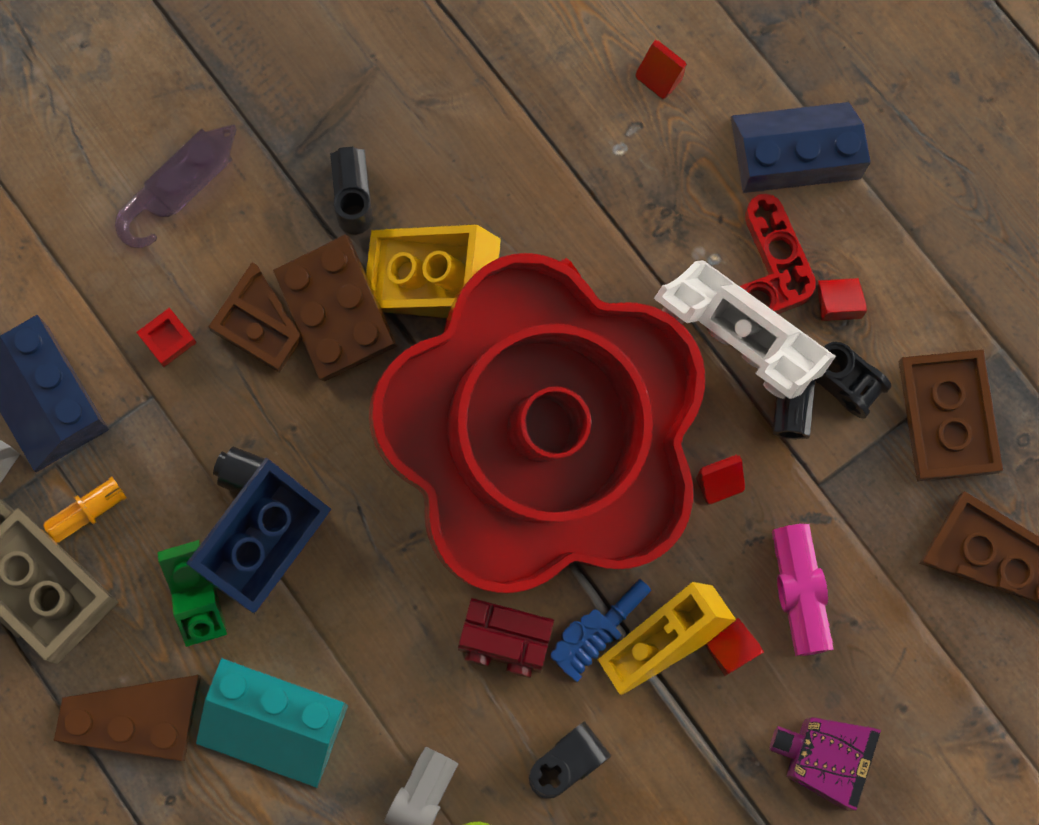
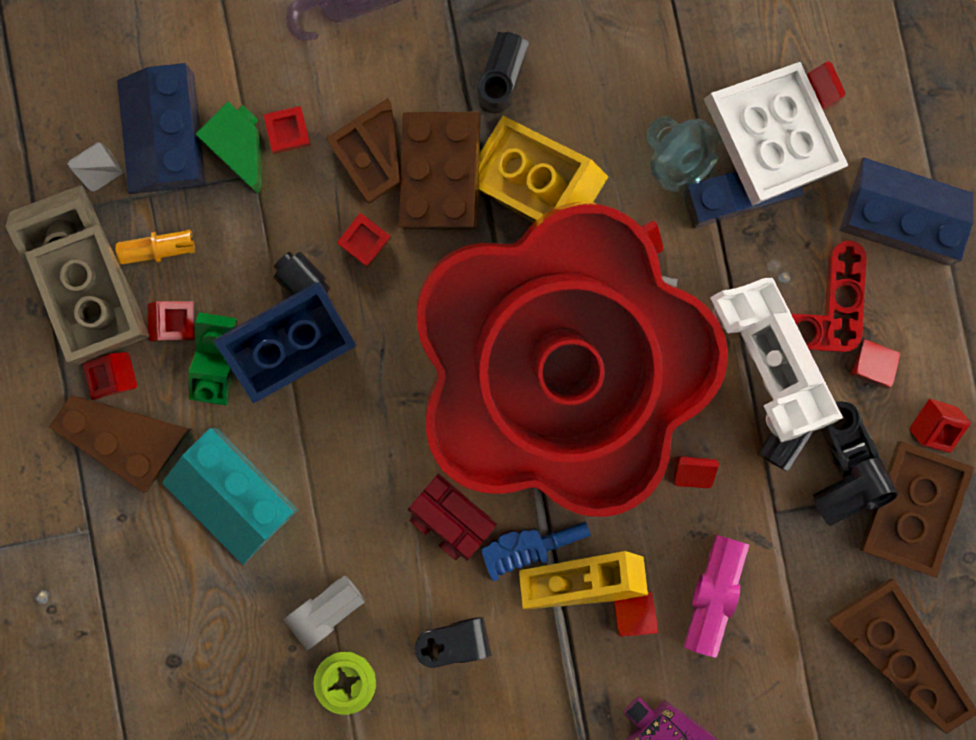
camera: 30 degrees right, 10 degrees up
(93, 660) = (110, 375): none -> red slope
(120, 371) = (236, 142): none -> green slope
(132, 577) = (170, 321): none -> red slope
(291, 407) = (364, 240): none -> red plate
(561, 183) = (684, 152): none -> clear light blue tile
(632, 198) = (725, 198): none -> dark blue slope
(638, 126) = (775, 132): none -> white plate
(890, 416) = (866, 487): none -> black piece
(930, 327) = (940, 425): none -> red slope

